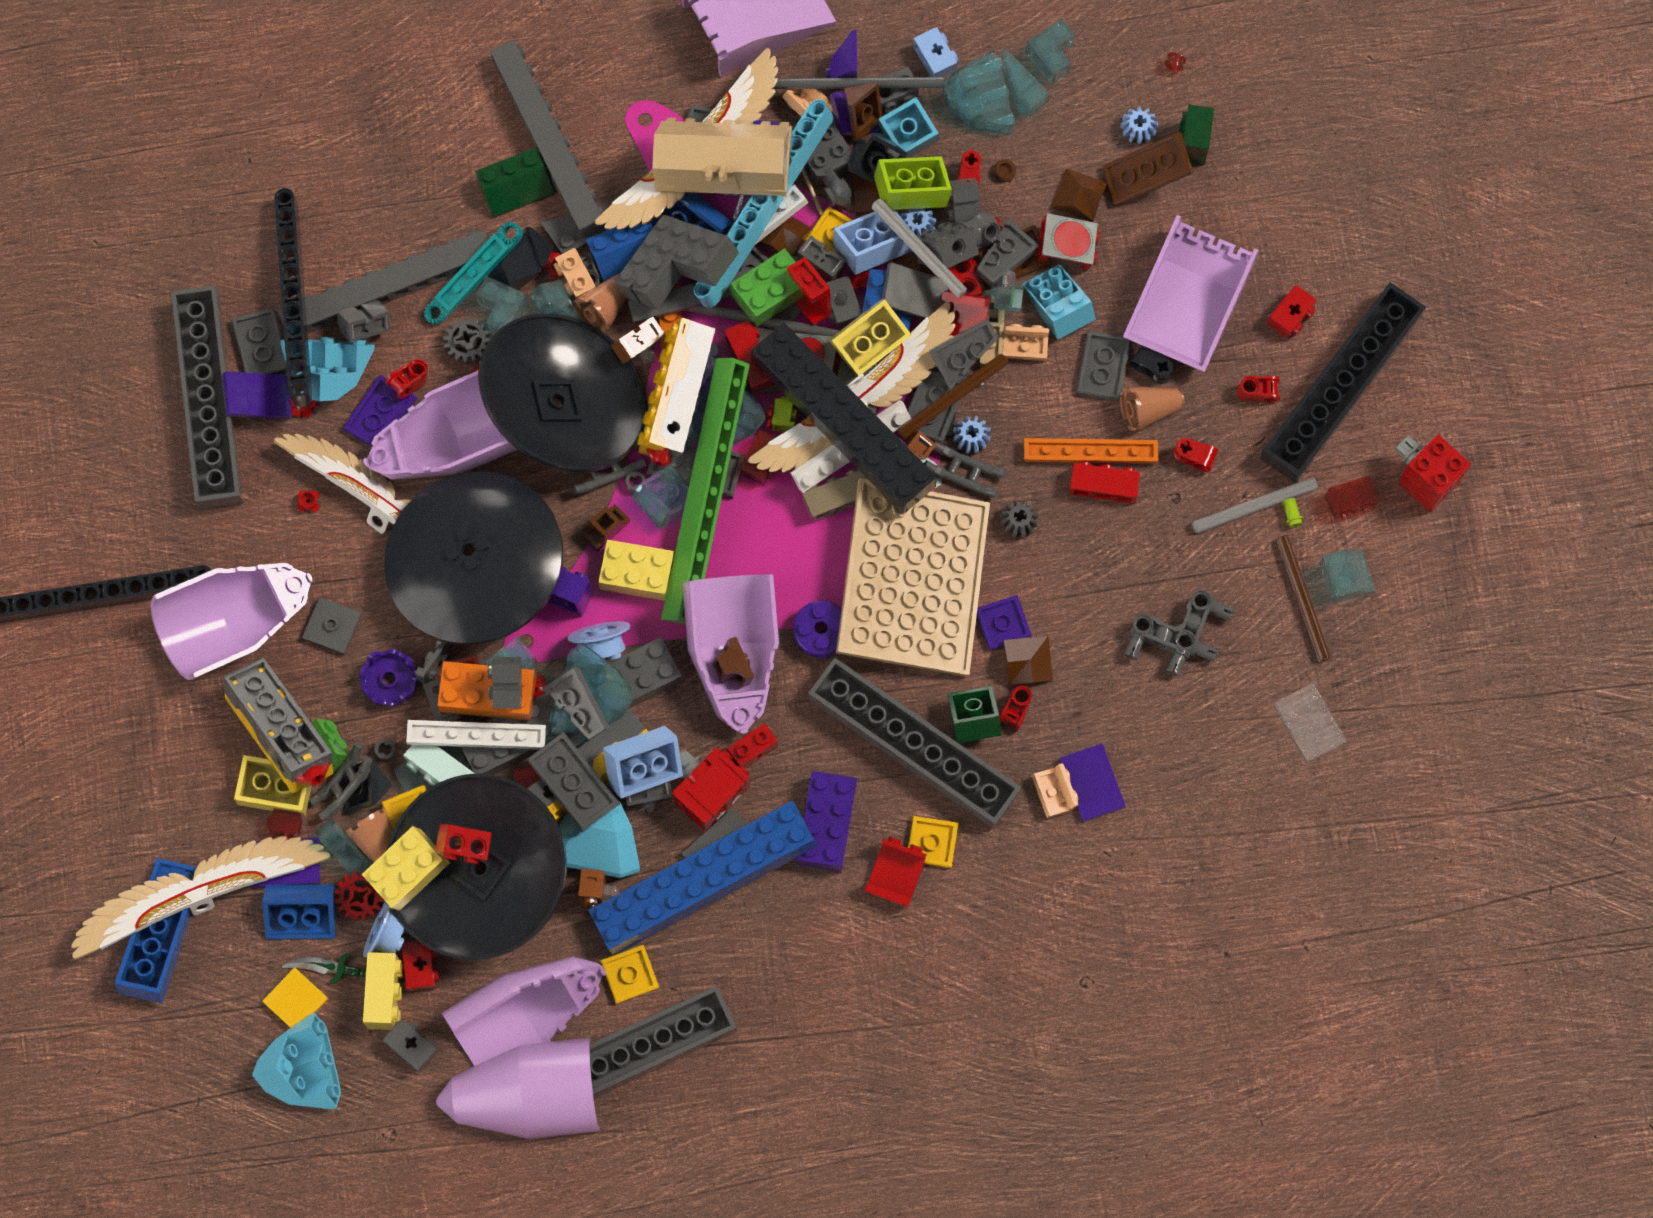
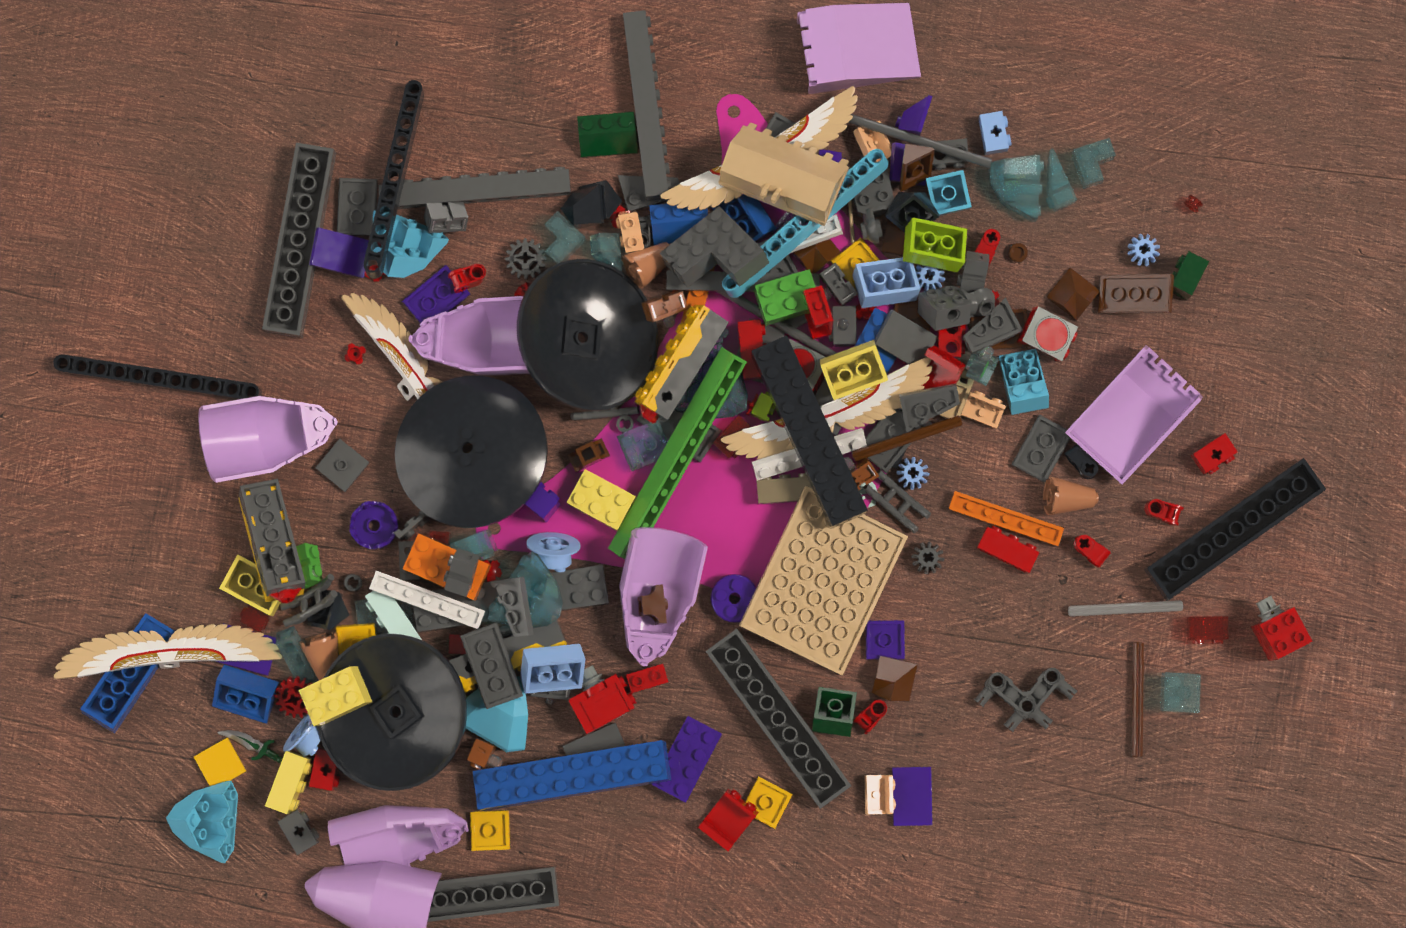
camera: 25 degrees right, 10 degrees up
(463, 840) = (387, 691): red brick -> none
(473, 273) = (548, 204): teal plate -> none
(919, 248) = (920, 305): light grey axle -> none
(1293, 516) = (1153, 625): lime pin -> none
(1309, 723) = (1105, 805): clear plate -> none

